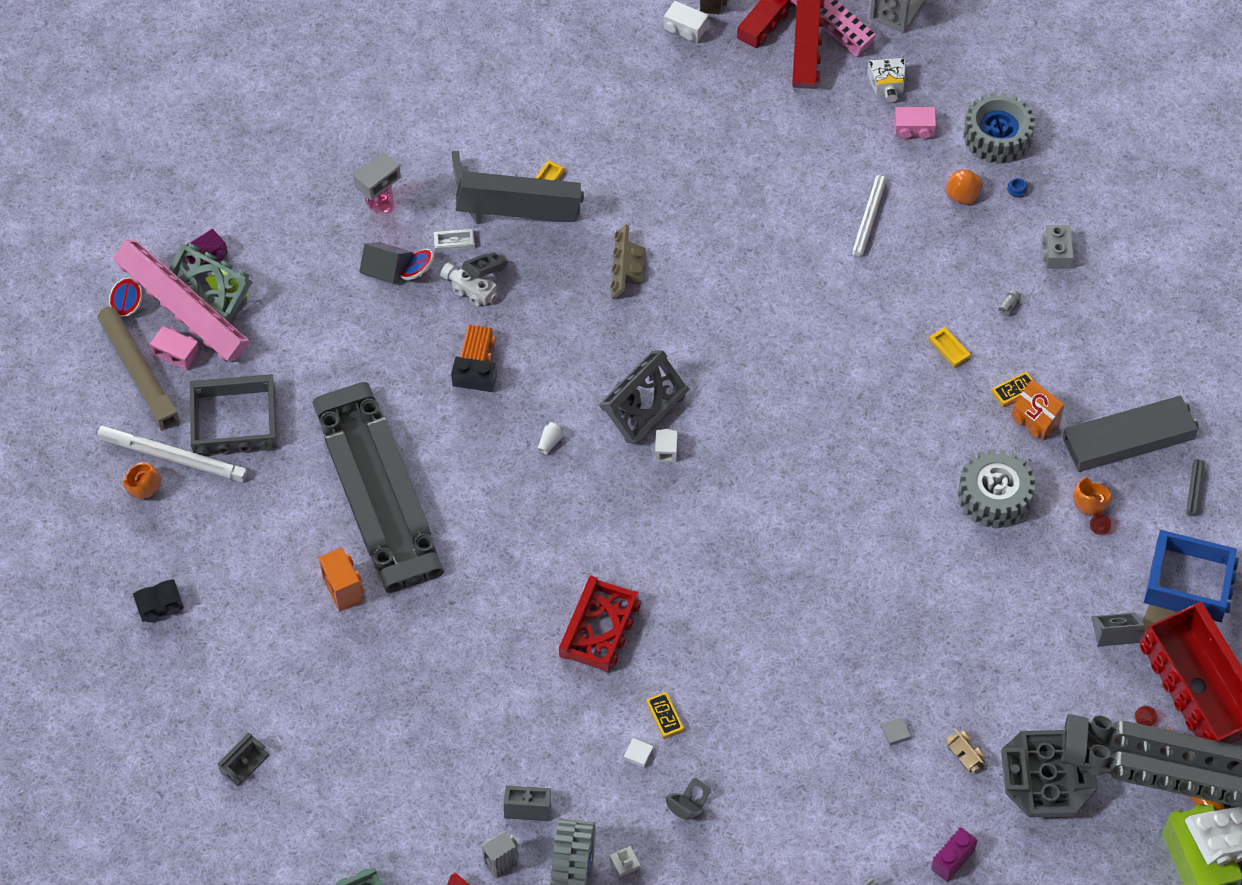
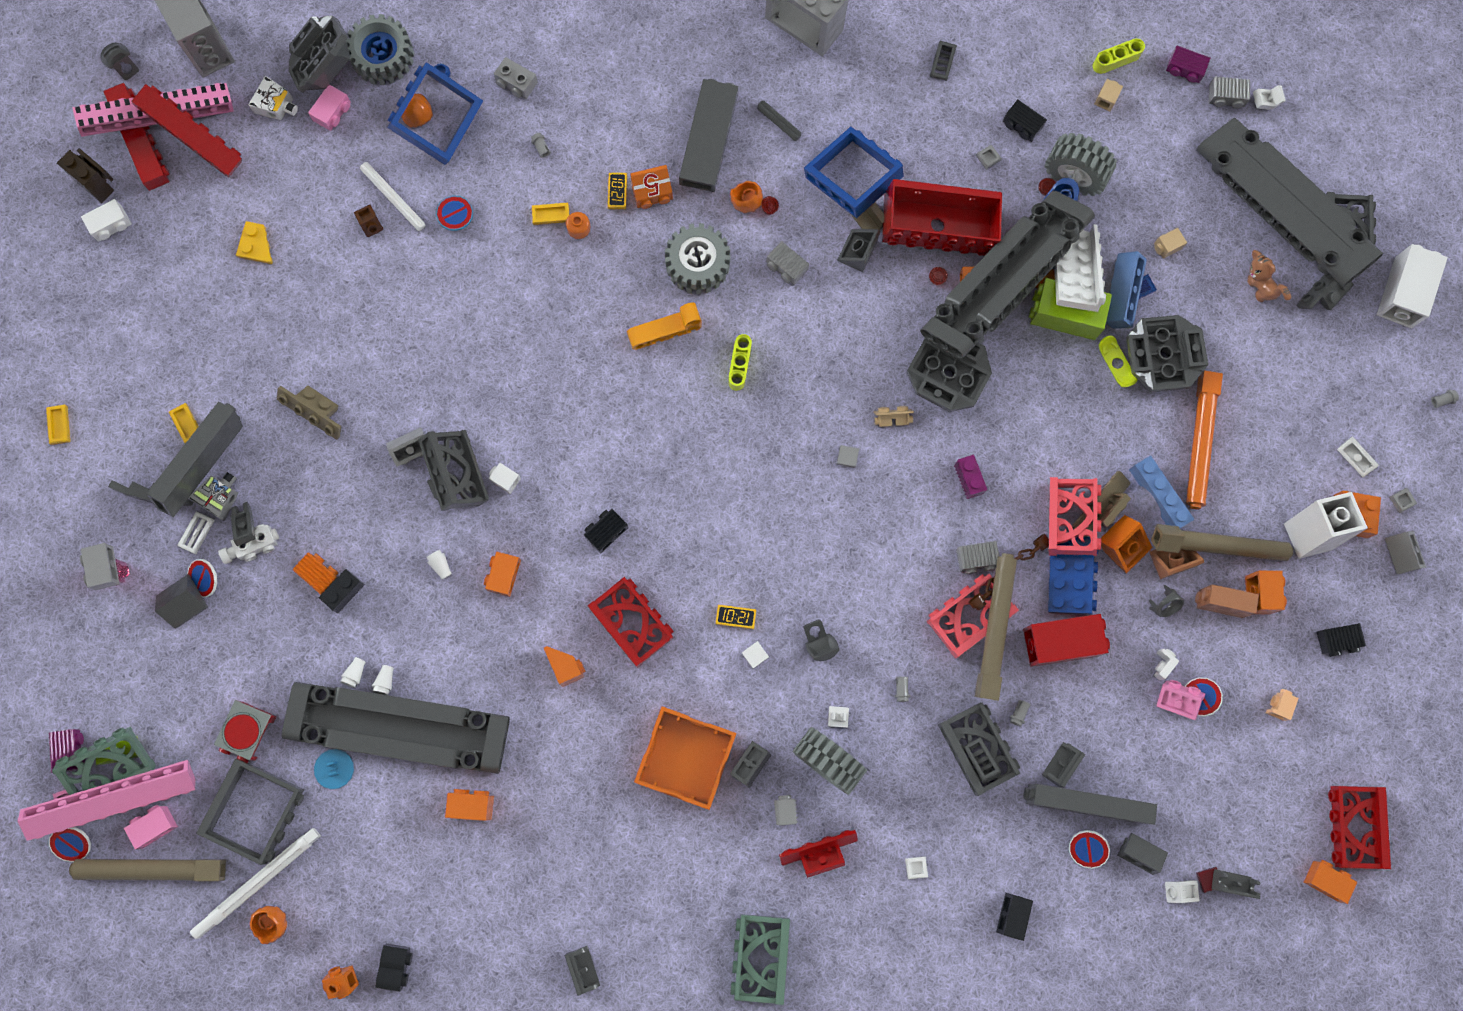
camera: 65 degrees left, 20 degrees up
(118, 560) = (340, 982): none -> orange brick
(300, 367) = (243, 730): none -> panel
(309, 459) = (333, 769): none -> dark azure piece
(405, 425) = (353, 673): none -> white cone
(413, 453) = (383, 682): none -> white cone
(482, 90) = (58, 424): none -> yellow tile
(497, 234) = (216, 495): none -> torso
(497, 741) = (685, 758): none -> orange tile
(517, 587) = (565, 666): none -> orange slope
(574, 493) = (502, 573): none -> orange brick
(635, 349) = (405, 447): none -> light grey brick
(673, 555) = (605, 530): none -> black brick
(746, 138) = (254, 243): none -> yellow wing
(830, 209) = (368, 221): none -> reddish brown bracket
(889, 269) = (454, 213): none -> piece
(922, 510) = (665, 327): none -> light orange beam
(927, 575) = (739, 354): none -> neon yellow beam
(953, 372) = (578, 225): none -> orange head
(954, 82) = (318, 53): none -> dark grey piece
(969, 232) = (442, 156): none -> blue window
(1053, 570) = (787, 263): none -> light grey brick

